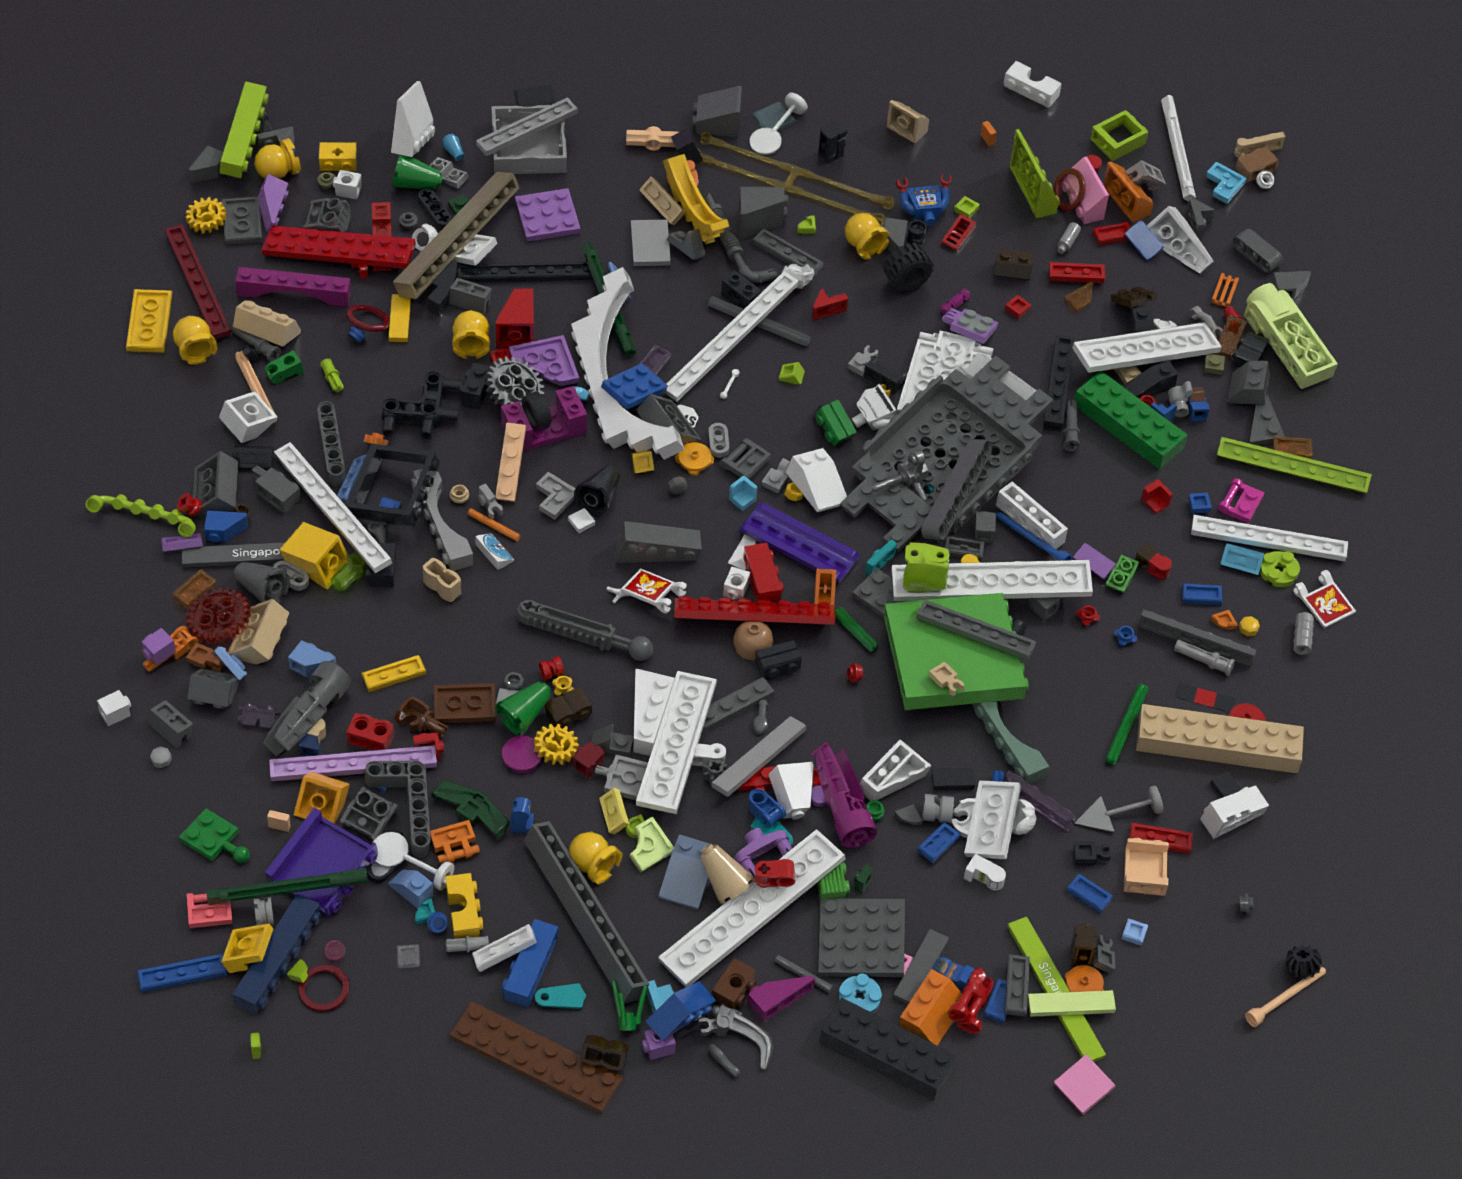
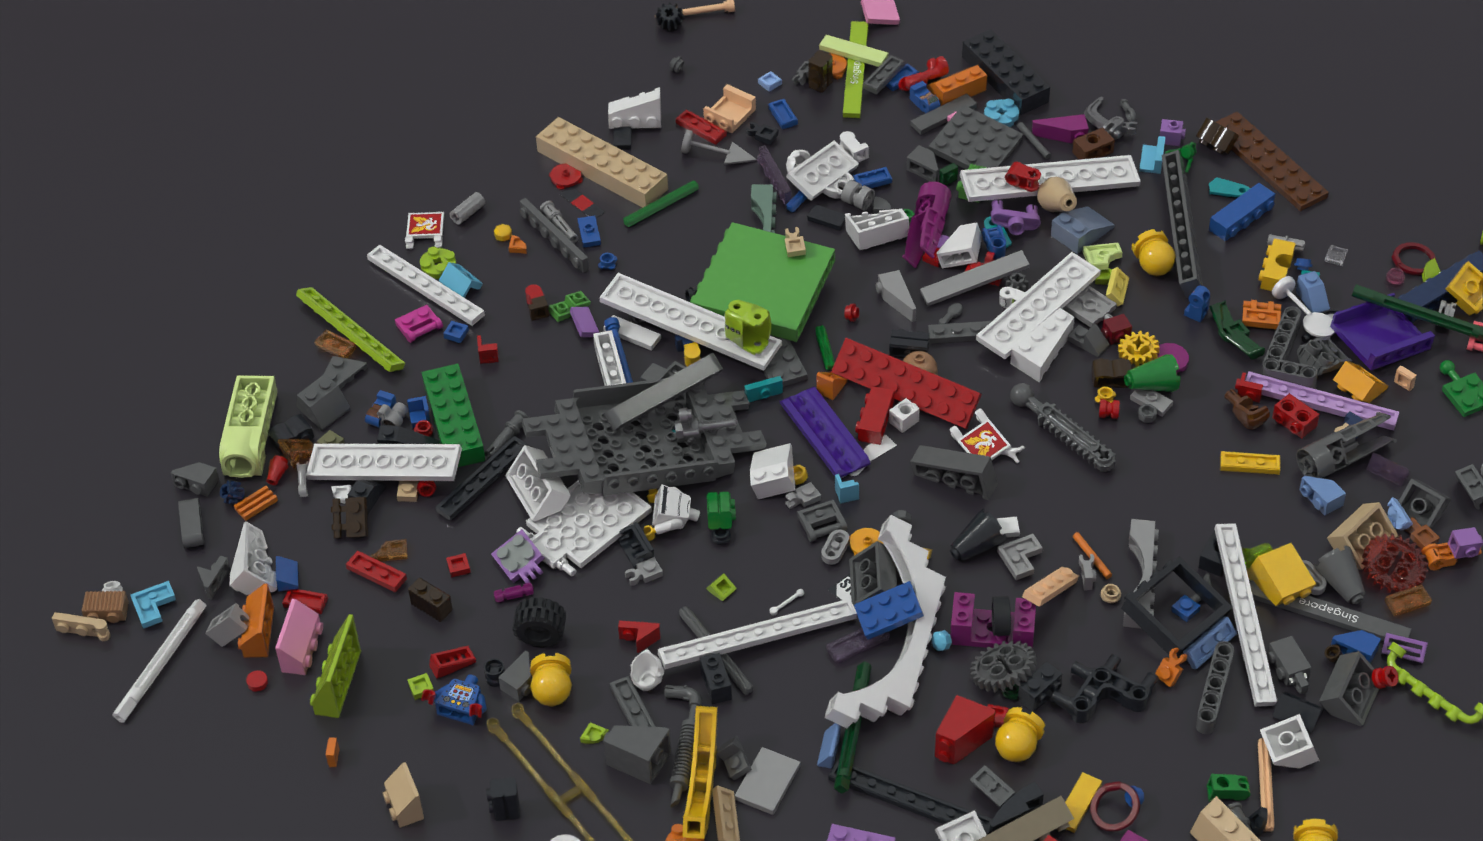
camera: 145 degrees left, 5 degrees down
(332, 375) = (1180, 764): lime axle -> none
(442, 580) = (1171, 511): tan brick -> none
(464, 703) = (1199, 411): reddish brown plate -> none
(493, 550) = (1105, 530): slope -> none
(504, 948) = (1259, 221): white tile -> none
(549, 358) = (946, 682): medium lavender plate -> none
(681, 1010) = (1145, 128): blue wedge -> none
(825, 710) = (896, 293): none -> light grey slope
(896, 881) = (923, 163): none -> dark grey slope
(976, 629) = (741, 272): dark grey plate -> none
(1042, 92) = (232, 777): white arch -> none
(1057, 188) = (301, 647): dark red piece -> none
(1068, 237) = (354, 608): light grey cylinder -> none
(1109, 145) = (205, 708): lime window -> none
(1170, 663) = (589, 231): none -> blue plate
(1202, 594) = (517, 269): blue tile -> none
(1248, 283) = (232, 492): none -> dark blue gear

